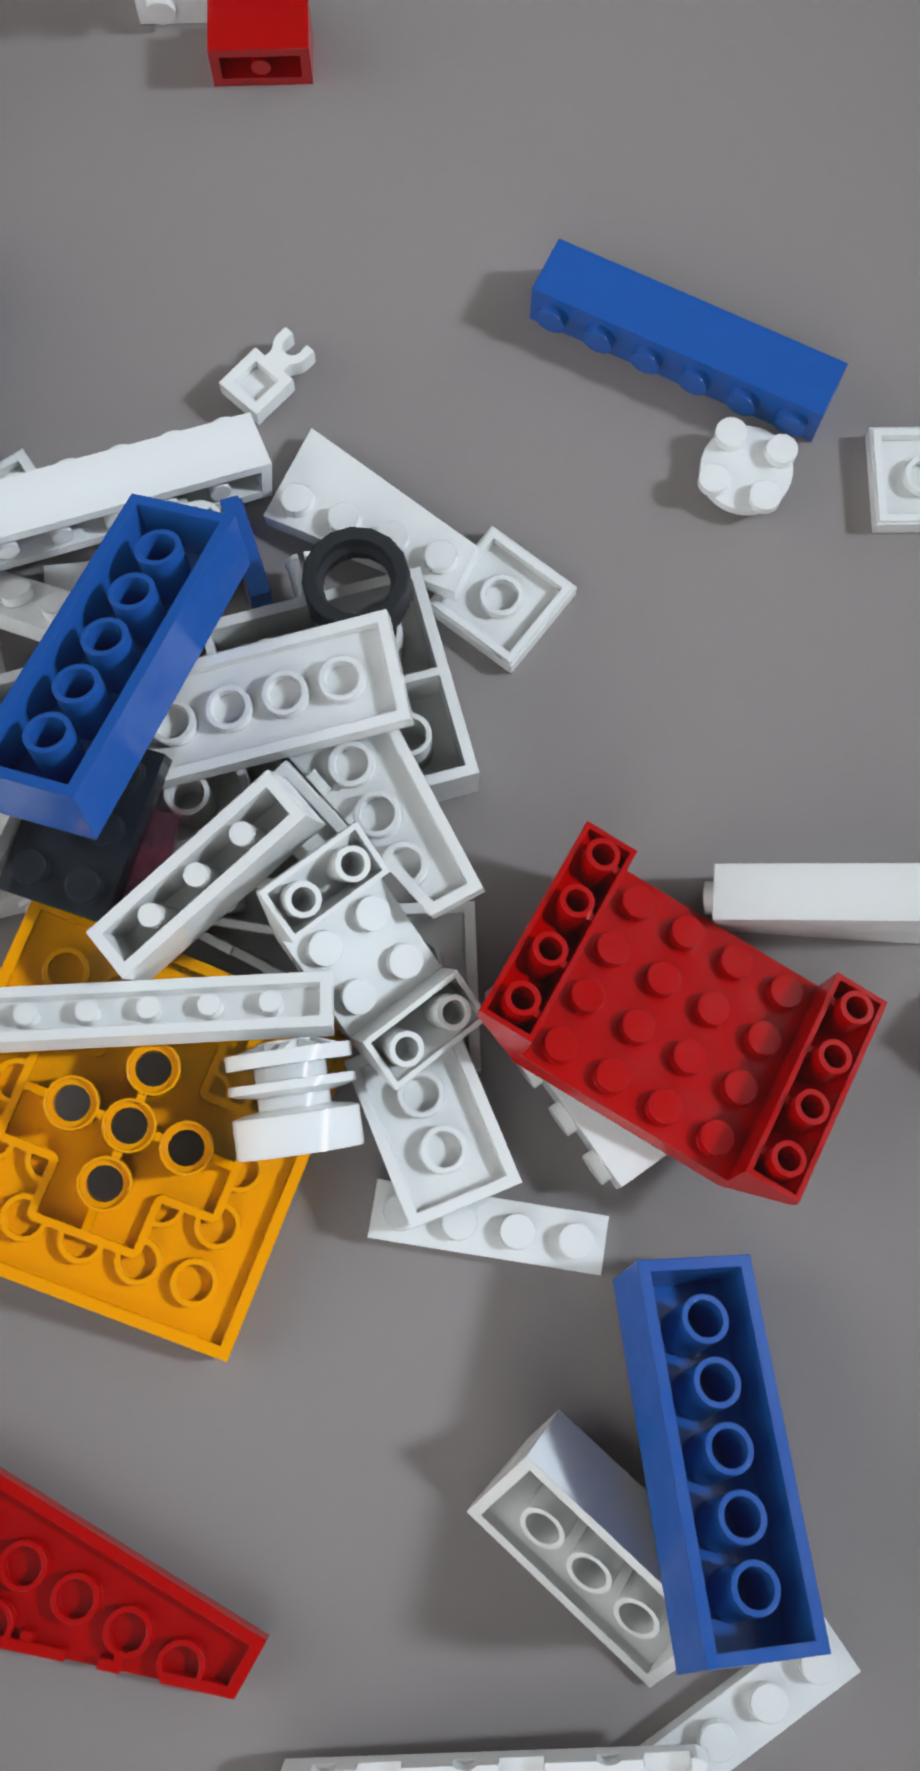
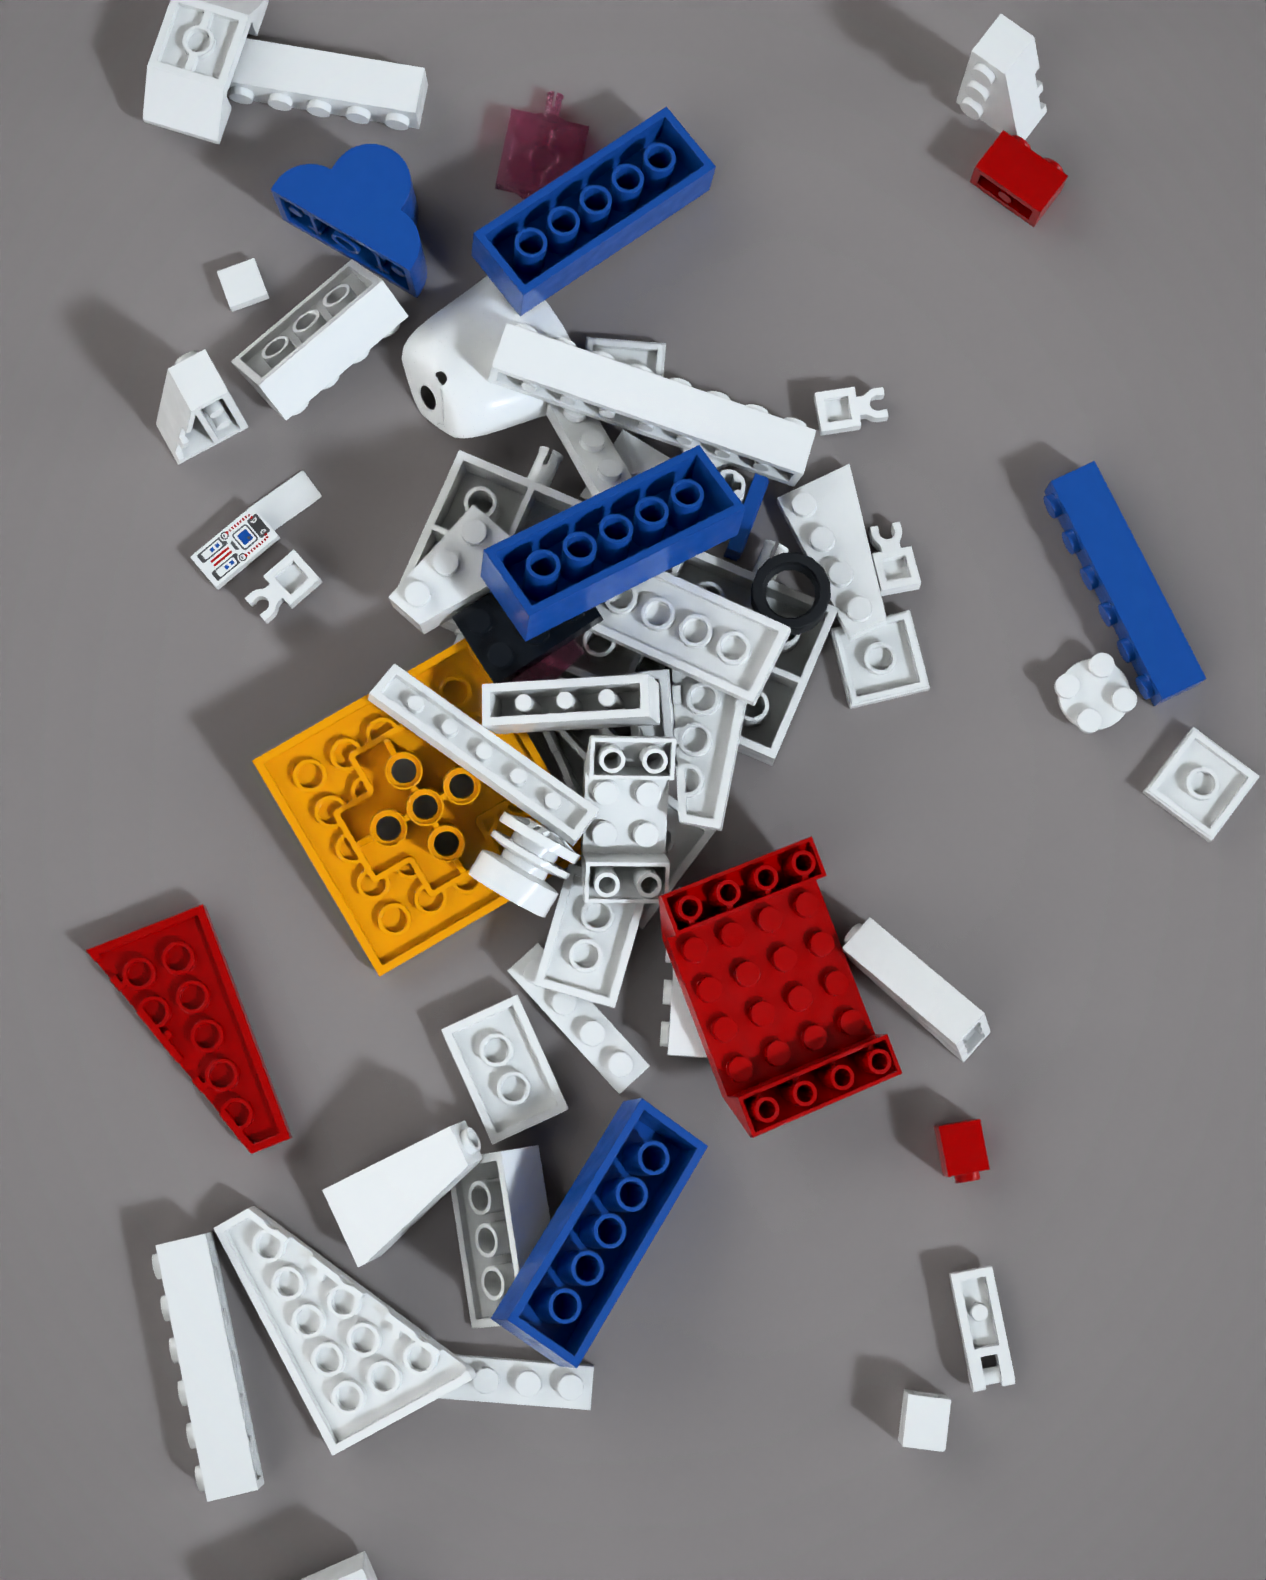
camera: 40 degrees right, 5 degrees up
(438, 1610) = (394, 1193): none -> white slope
(439, 490) = (893, 565): none -> white plate
(452, 1353) = (505, 1069): none -> white plate

